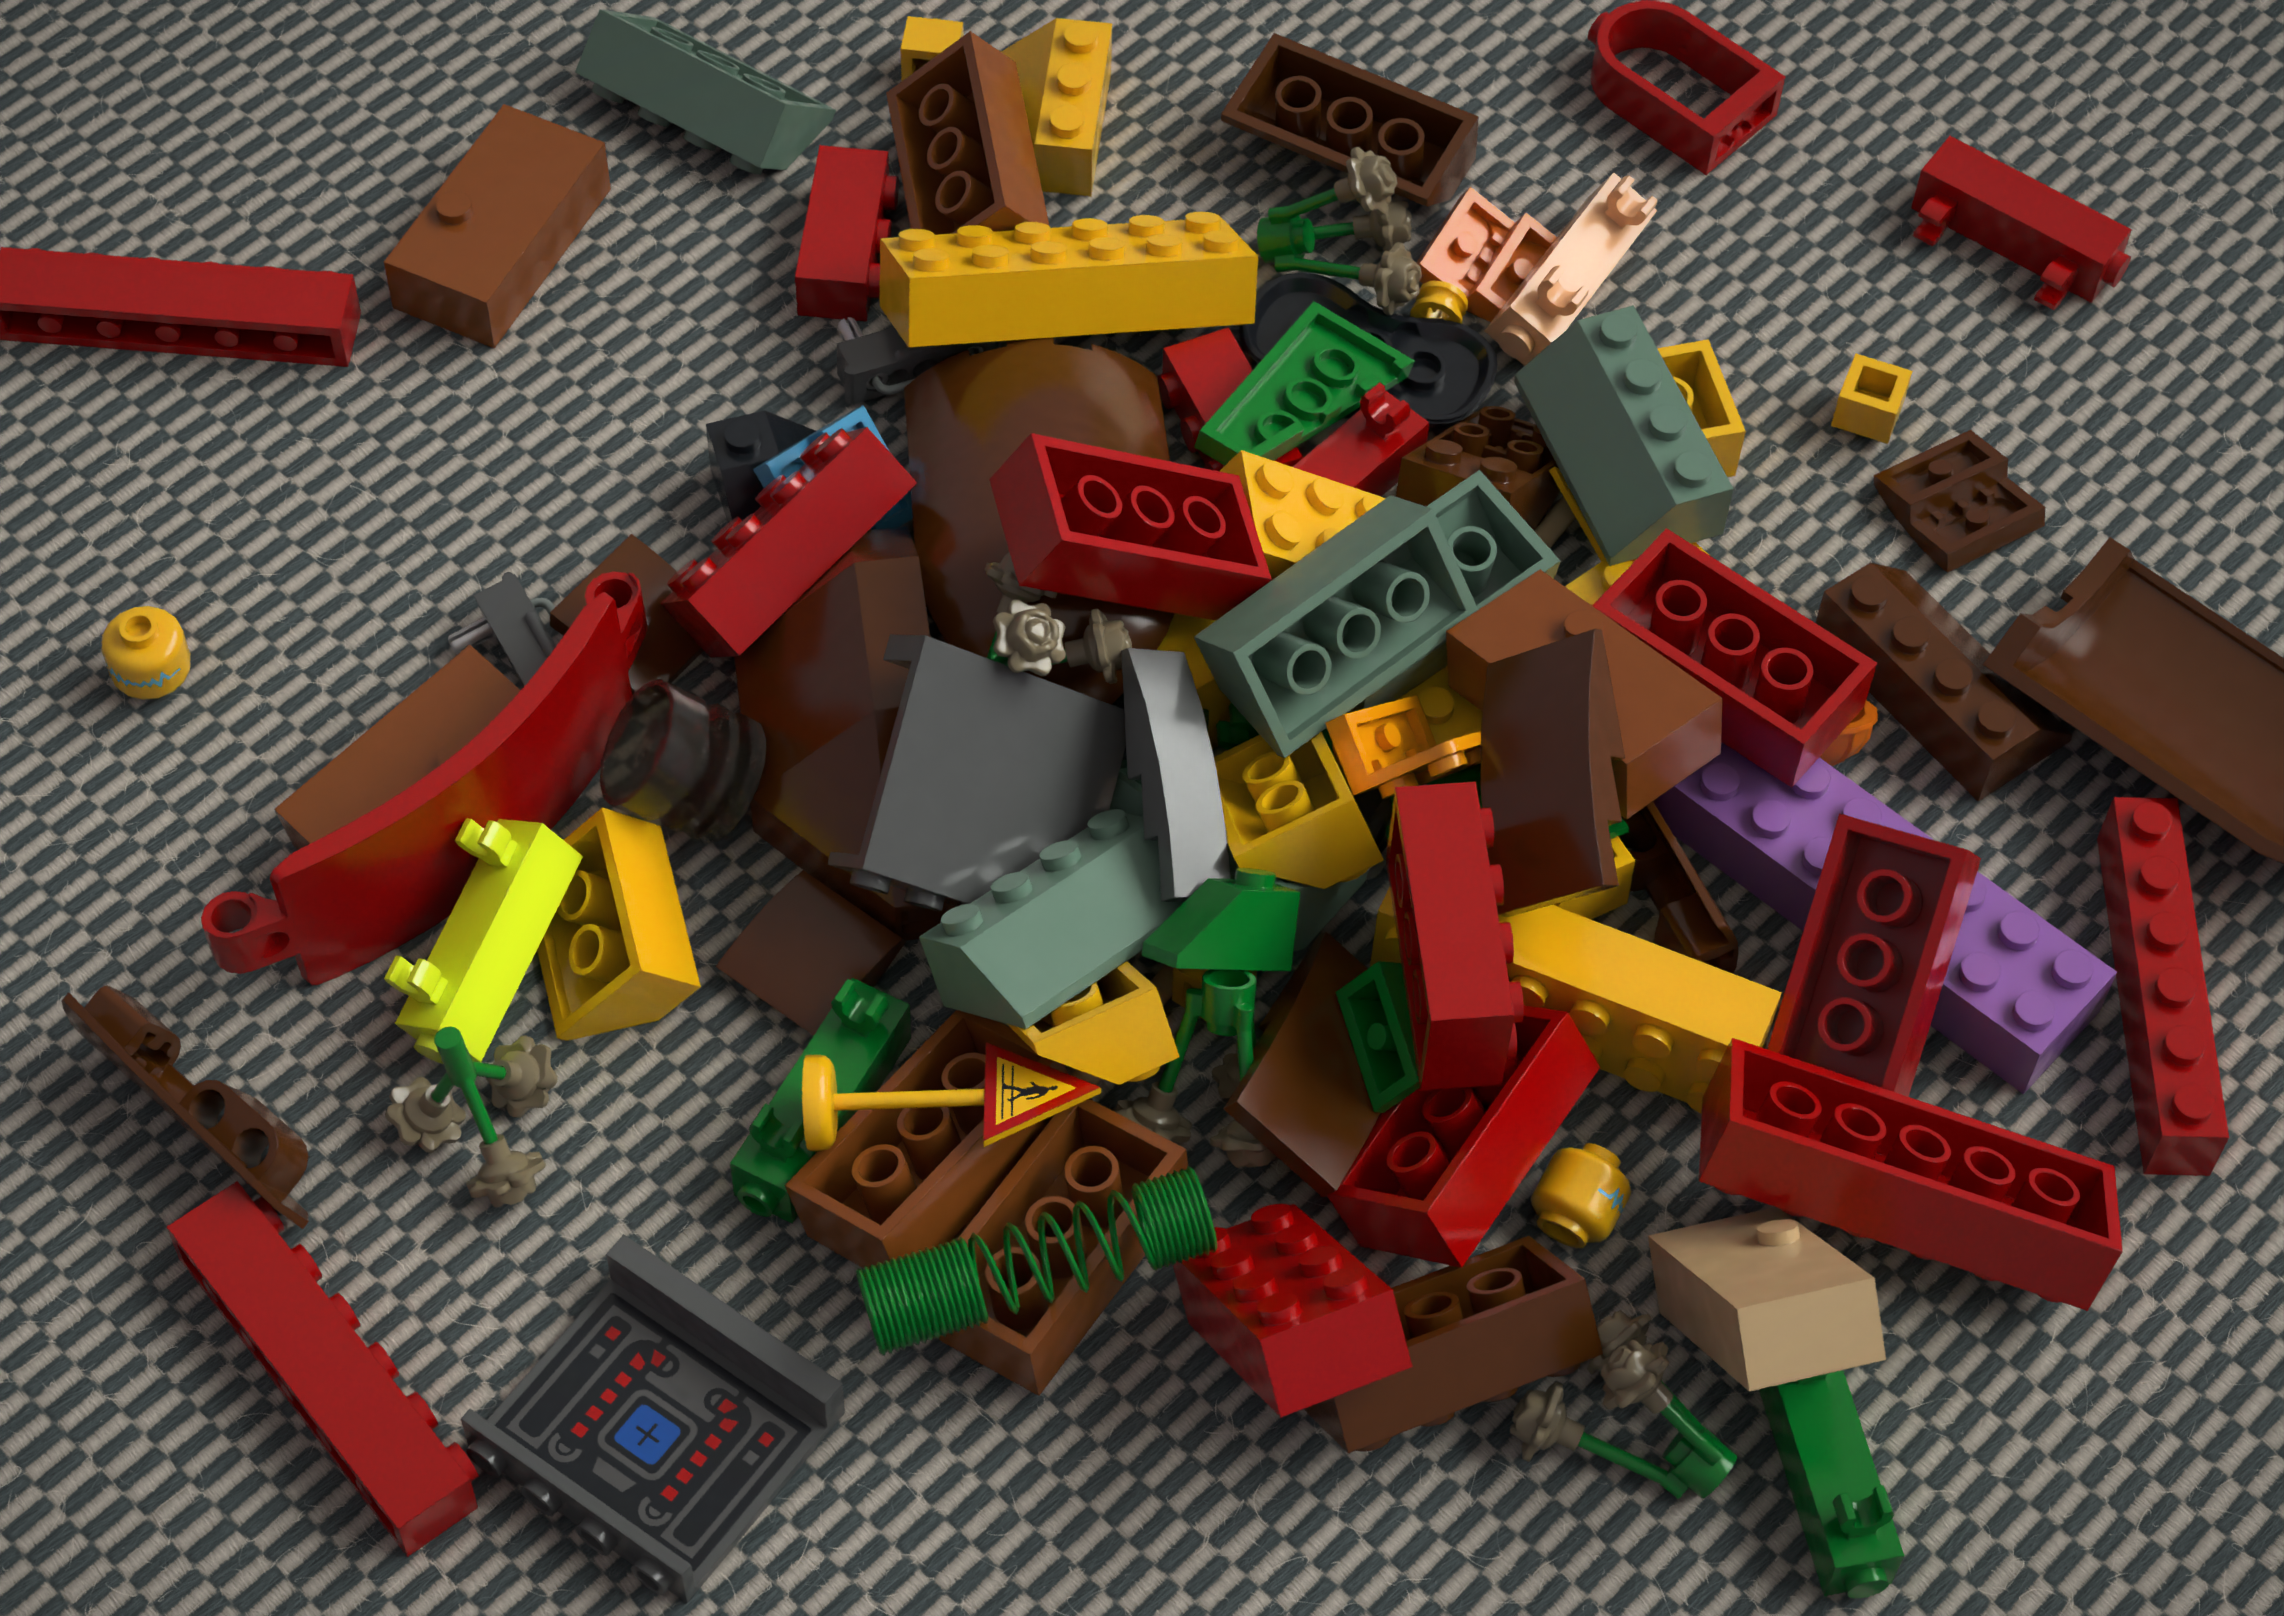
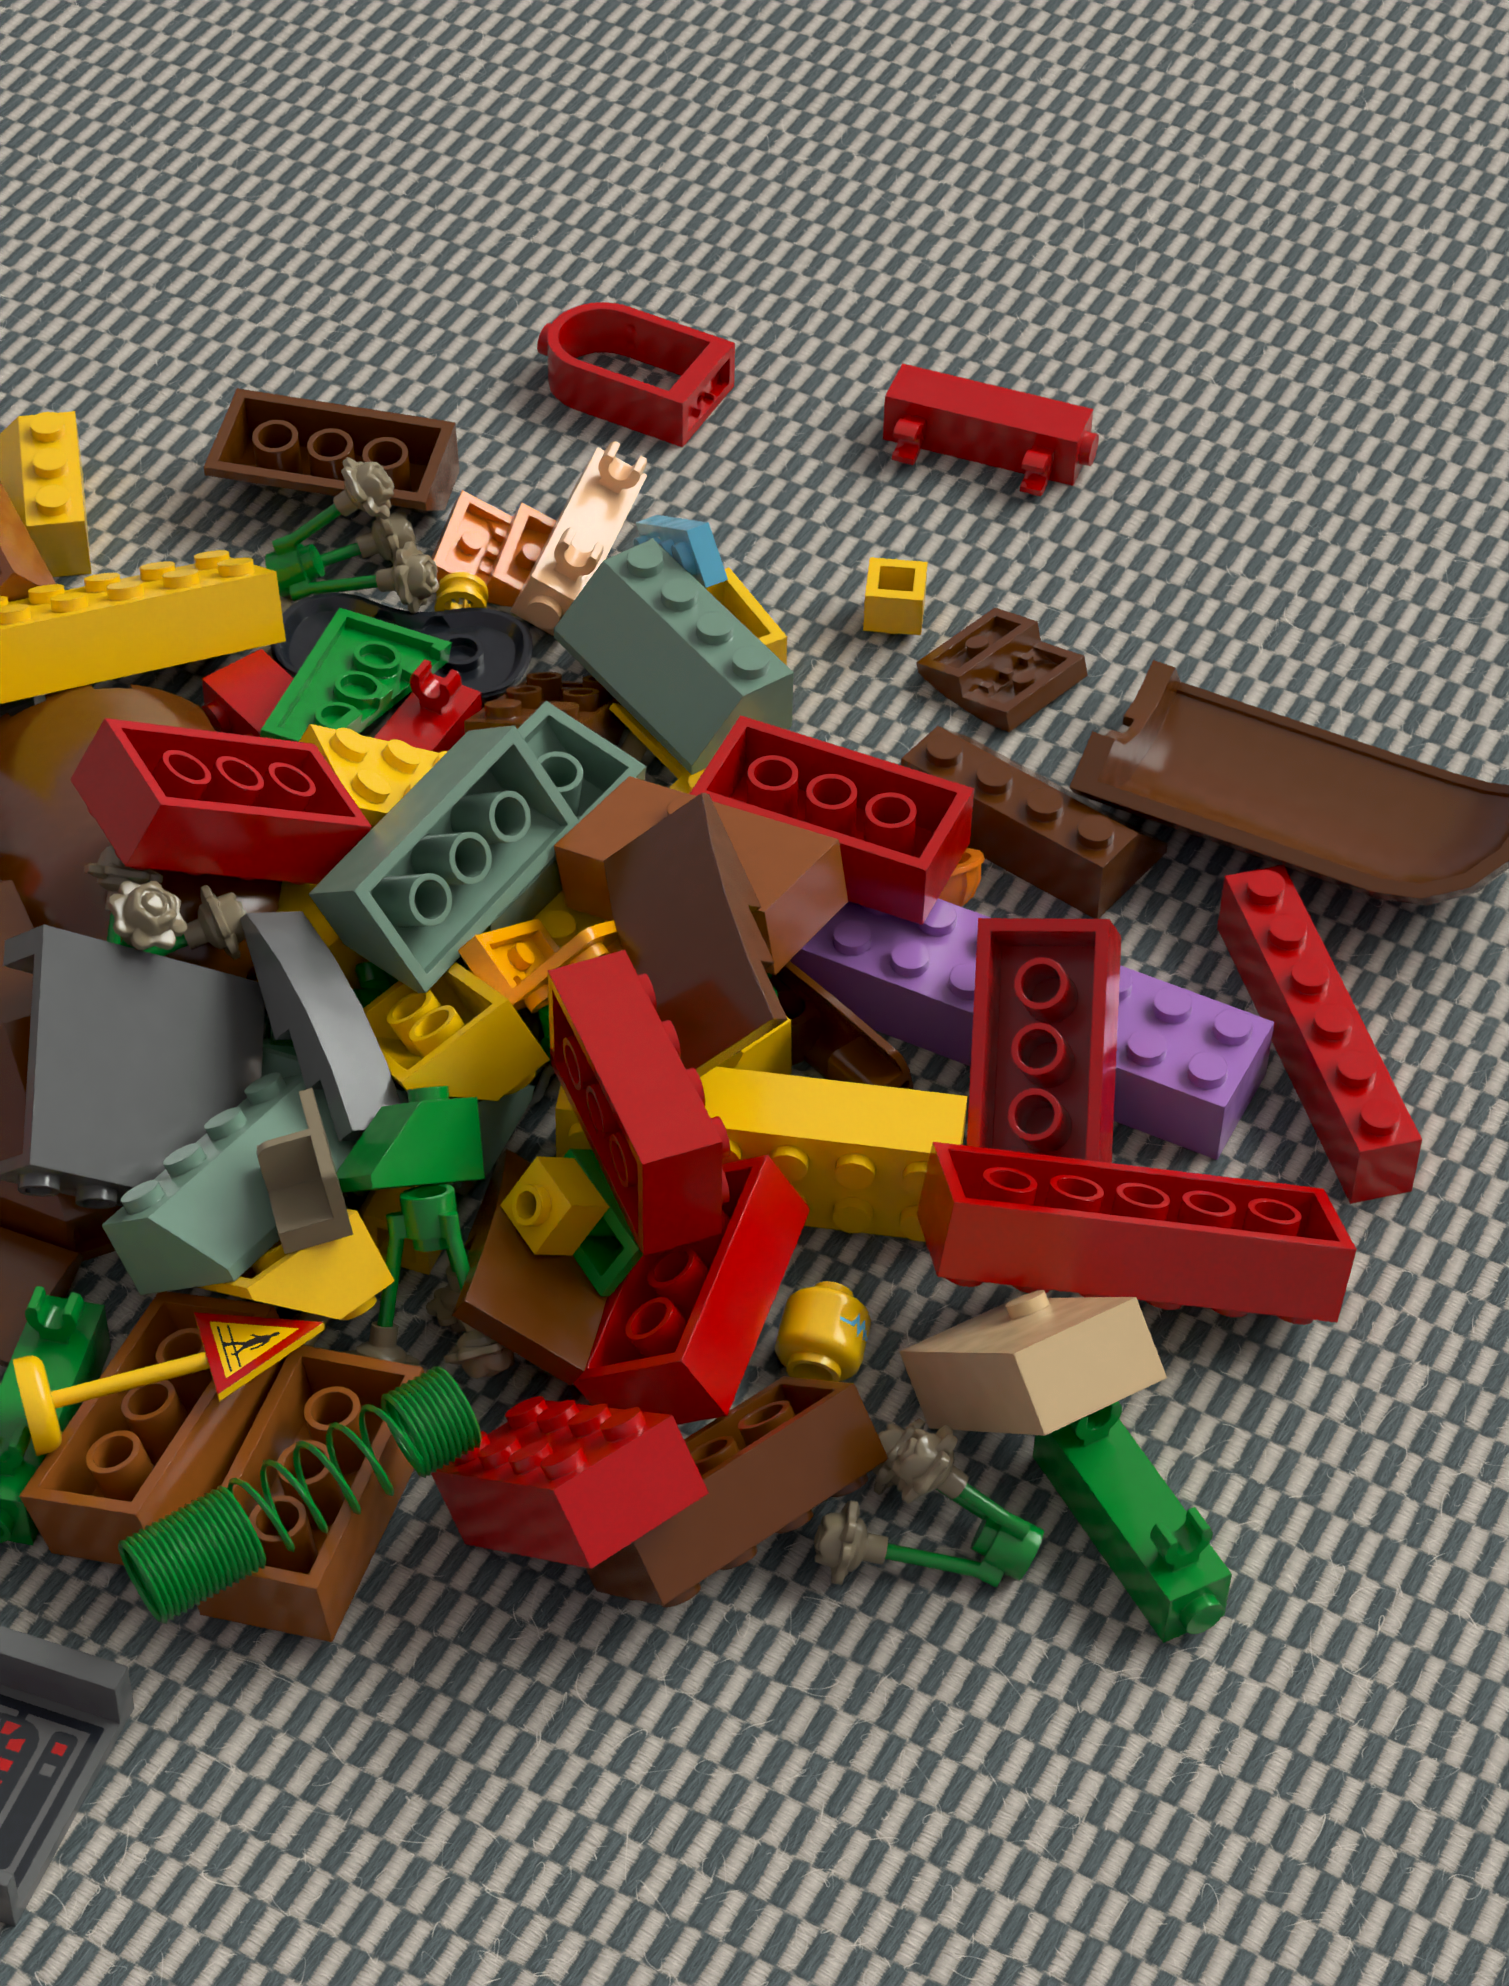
camera: 15 degrees left, 10 degrees down
(1113, 948) = (304, 1184): none -> dark tan panel
(1349, 1015) = (554, 1206): none -> yellow plate
(1662, 312) = (688, 543): none -> medium azure plate

